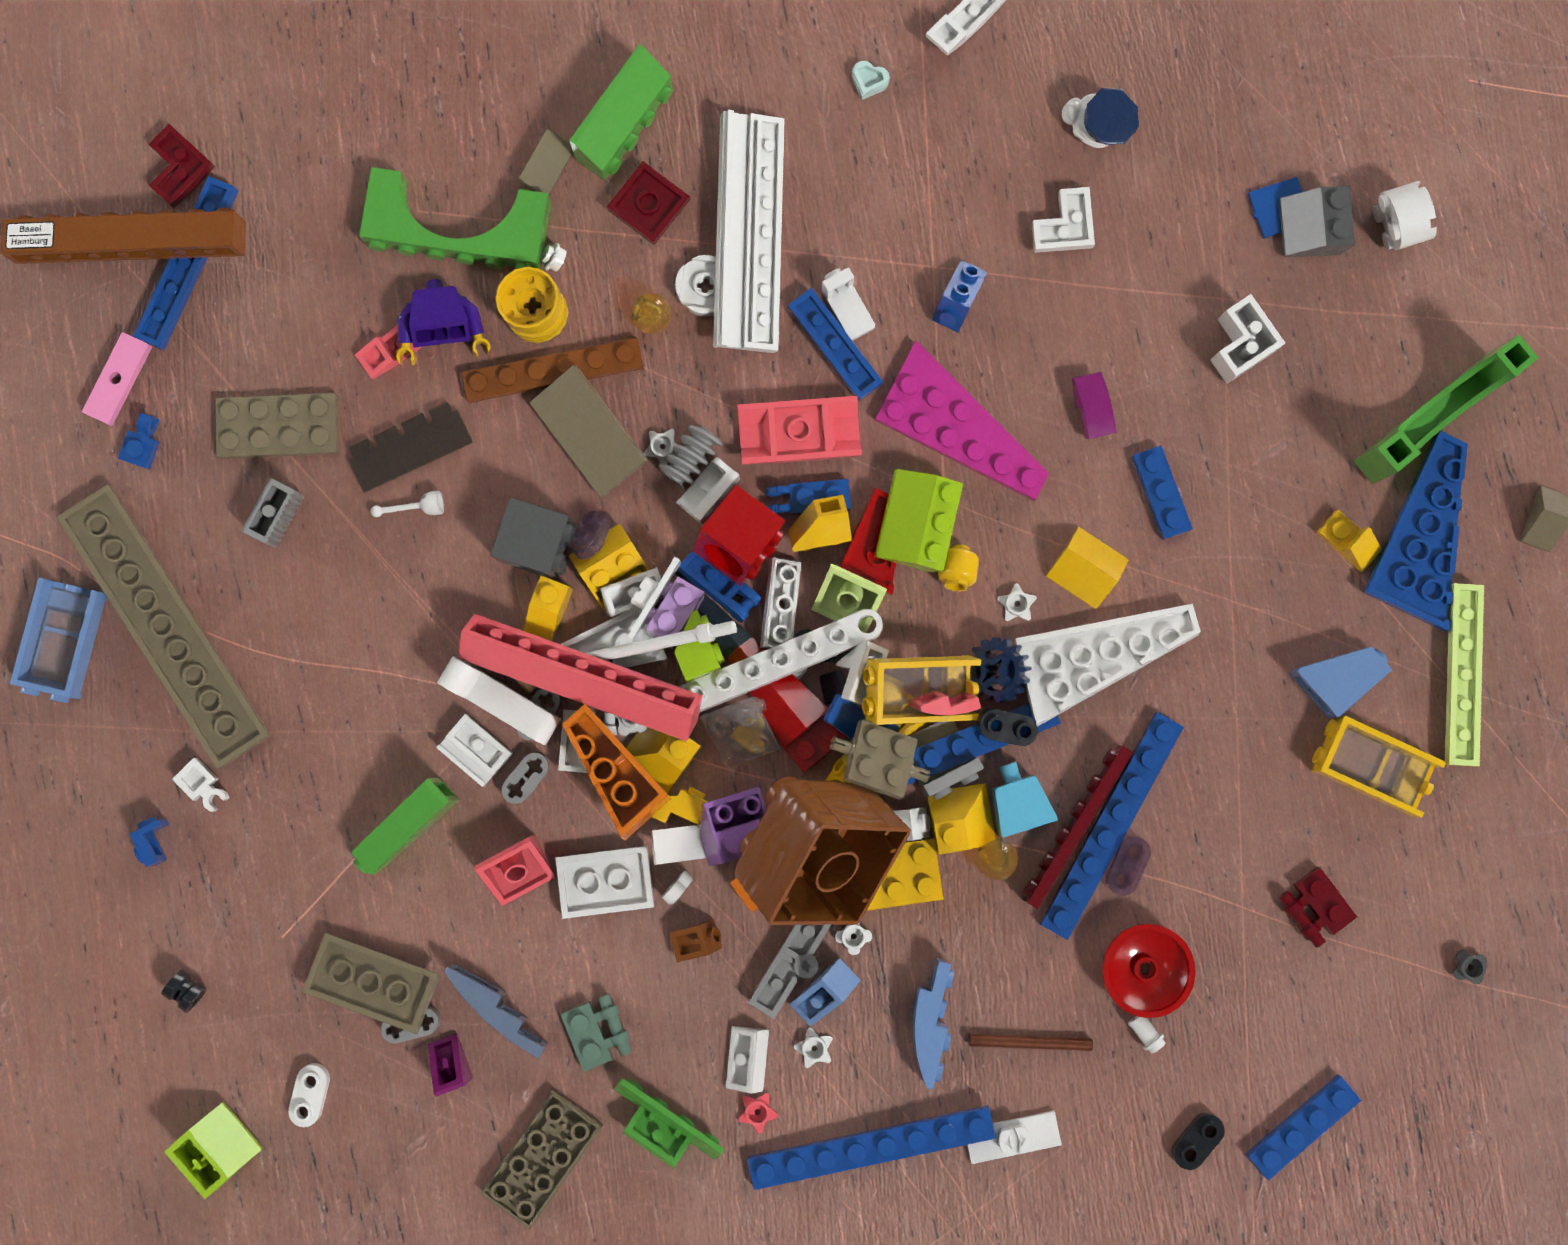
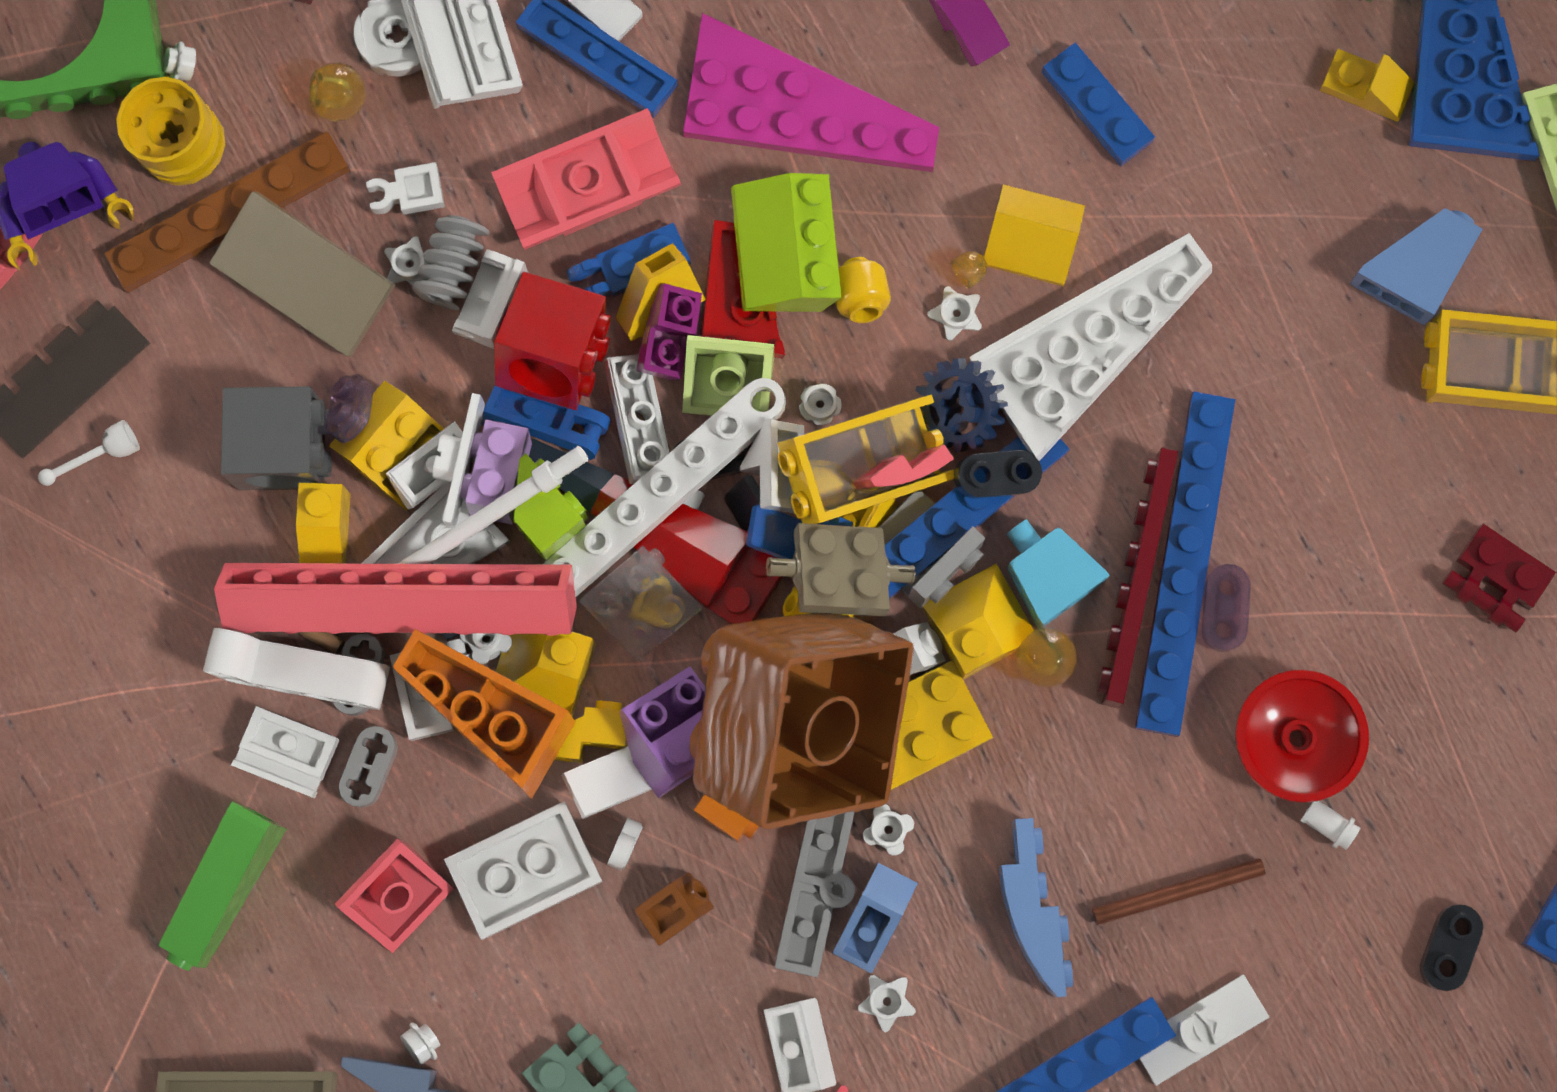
camera: 15 degrees left, 5 degrees down
(501, 972) = (420, 1043): none -> white plate
(683, 397) = (415, 190): none -> white plate
(821, 550) = (666, 331): none -> magenta slope
(908, 628) = (816, 393): none -> white plate
(1036, 577) = (969, 268): none -> clear yellow hinge

